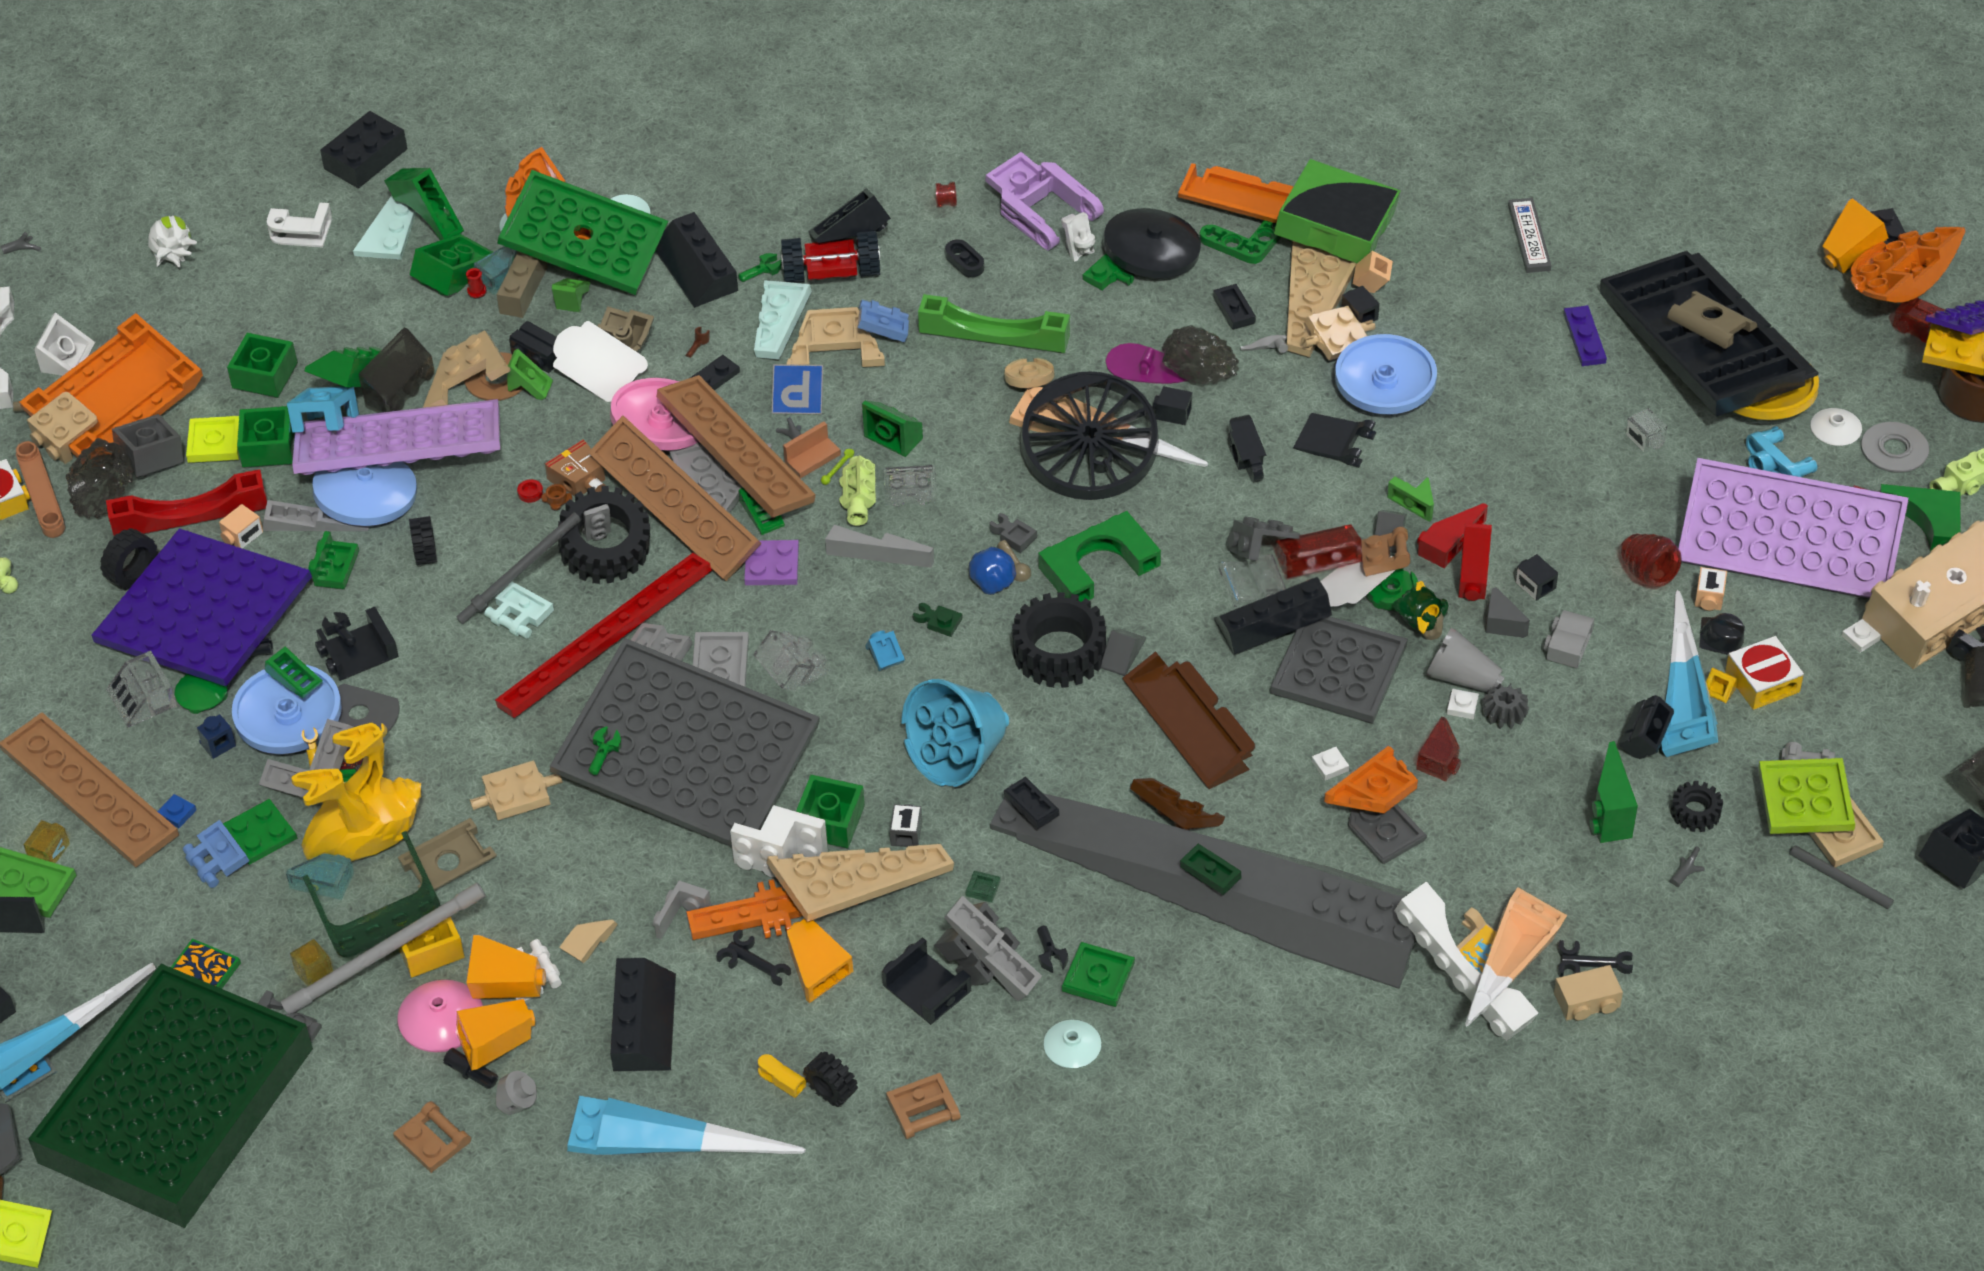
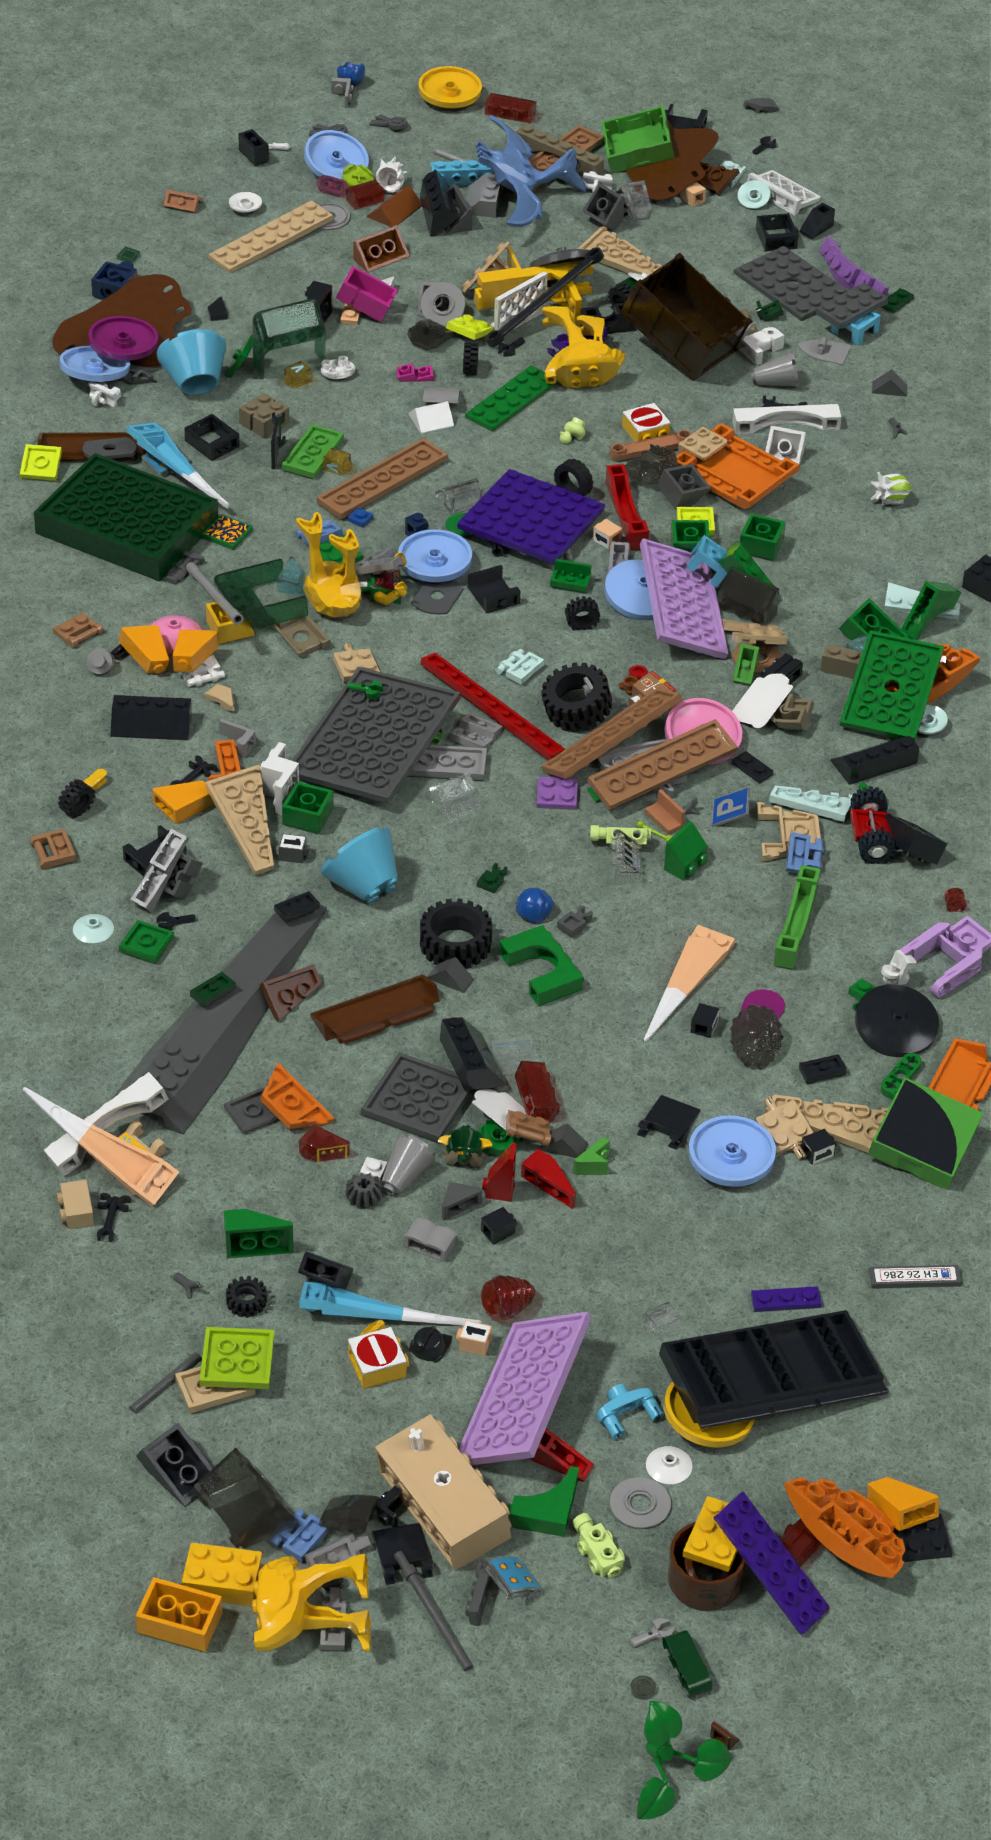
camera: 90 degrees right, 5 degrees down
(285, 656) = (462, 541): green slope -> none
(300, 230) = (908, 557): white piece -> none
(311, 962) = (217, 567): clear yellow brick -> none
(340, 628) = (513, 581): black bar -> none
(475, 283) = (849, 635): red pin -> none
(481, 601) = (527, 645): dark grey bar -> none
(569, 293) = (836, 685): bright green slope -> none
(628, 1128) = (64, 713): medium azure plate -> none
(700, 339) = (794, 761): copper hand -> none
(885, 649) = (461, 845): dark azure bracket -> none
(889, 549) = (561, 850): light grey slope -> none
(968, 262) = (877, 911): black plate -> none
(983, 886) = (236, 889): clear green tile -> none
(1023, 571) = (548, 921): dark tan bar -> none
(1029, 374) = (745, 938): tan tile -> none
(1090, 435) = (665, 962): black piece -> none
(1246, 446) = (655, 1059): black piece -> none
(1247, 535) = (551, 1052): dark grey bracket -> none
(1274, 341) = (779, 1087): light grey bar -> none
(1330, 763) = (323, 1085): white plate -> none
(1372, 272) = (855, 1154): light nougat brick -> none
(1717, 330) = (776, 1376): dark tan piece -> none
(1794, 751) = (289, 1368): light grey bar -> none

